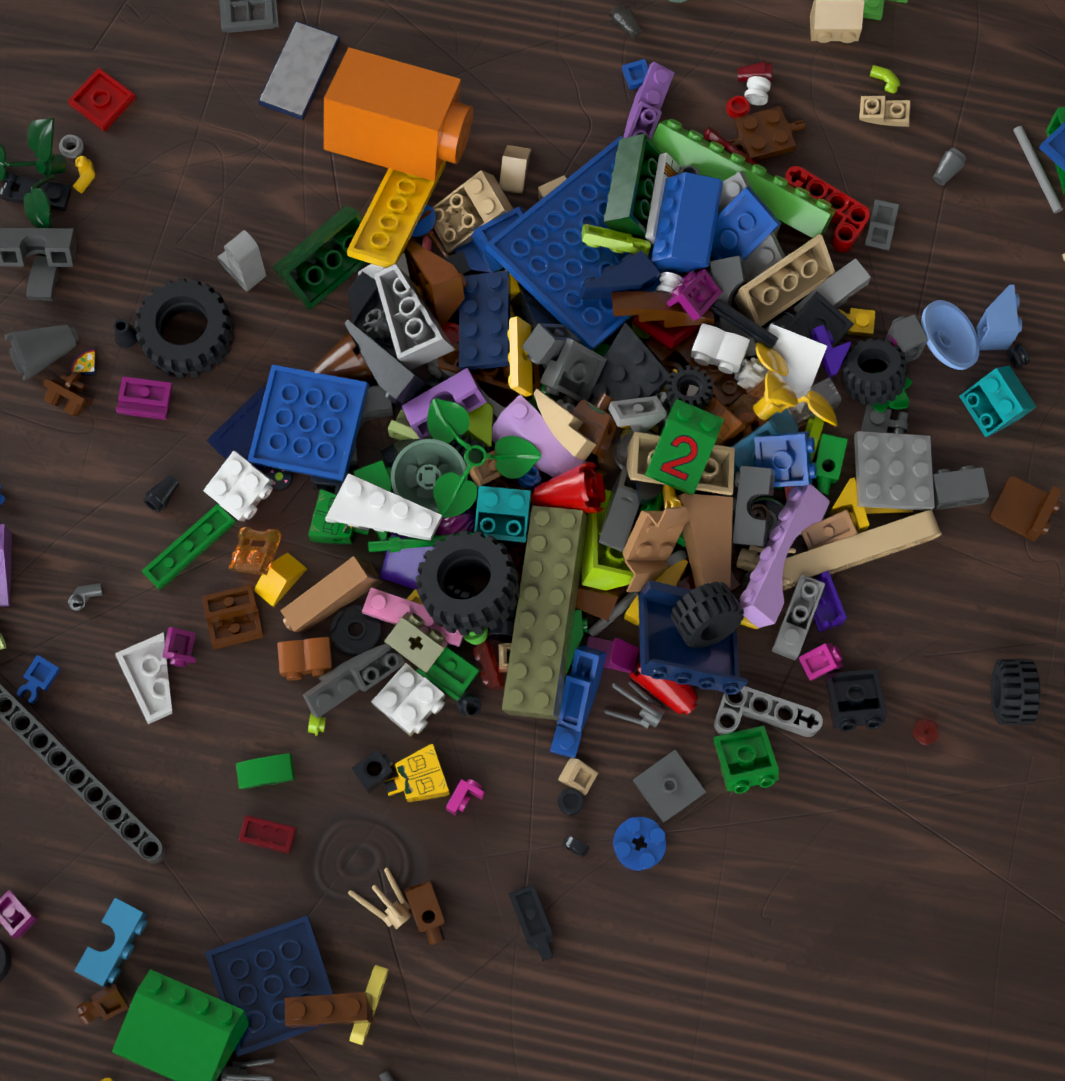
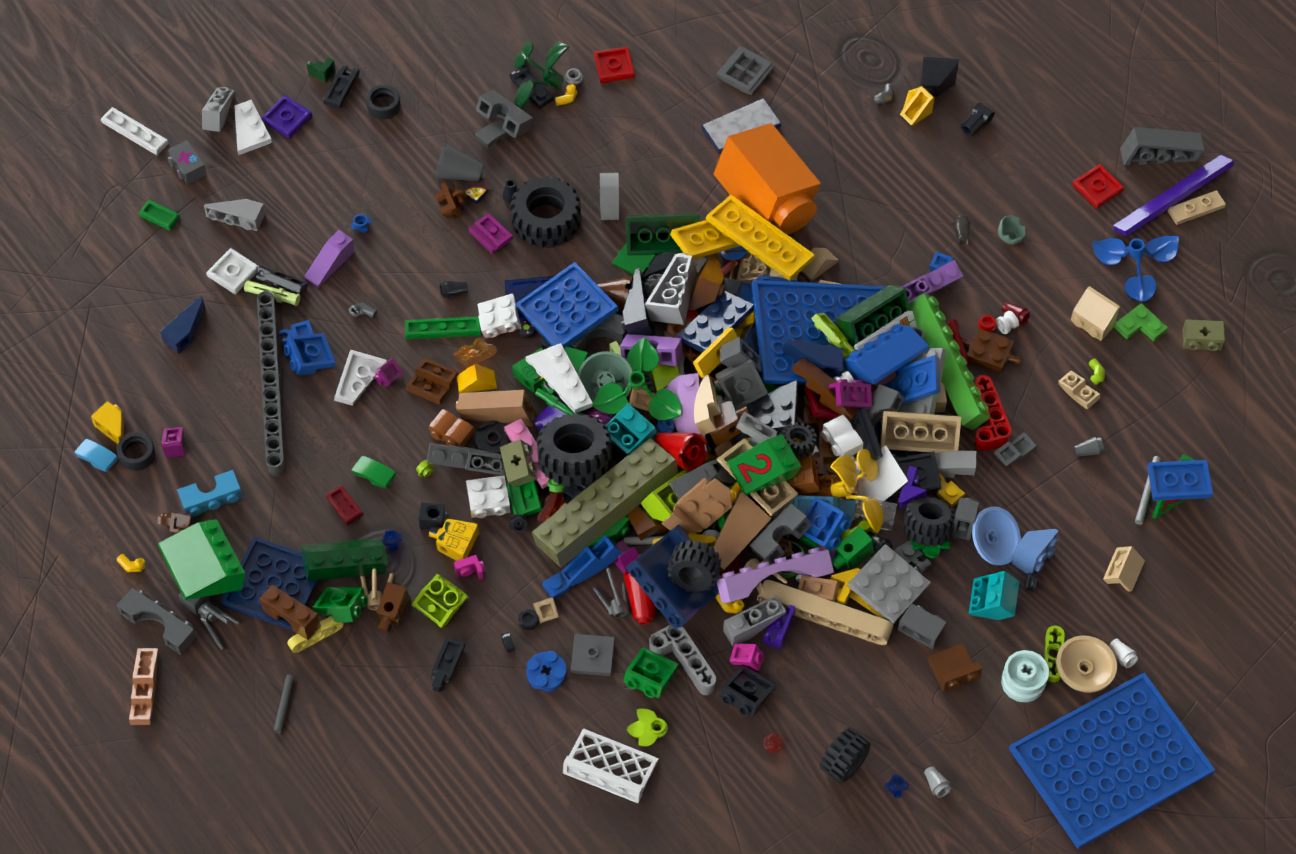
camera: 40 degrees right, 15 degrees down
(73, 693) = (309, 353): none -> blue plate
(324, 315) = (632, 262): none -> green piece
(324, 896) = (344, 559): none -> dark green slope
(358, 836) = (391, 534): none -> clear blue plate
(369, 951) = (342, 603): none -> green plate
(444, 187) = (760, 237): none -> yellow plate
(466, 857) = (439, 600): none -> lime slope
(788, 821) = (645, 727): none -> lime plate
(800, 912) = (605, 780): none -> white fence
(843, 430) = (878, 541): none -> black cone

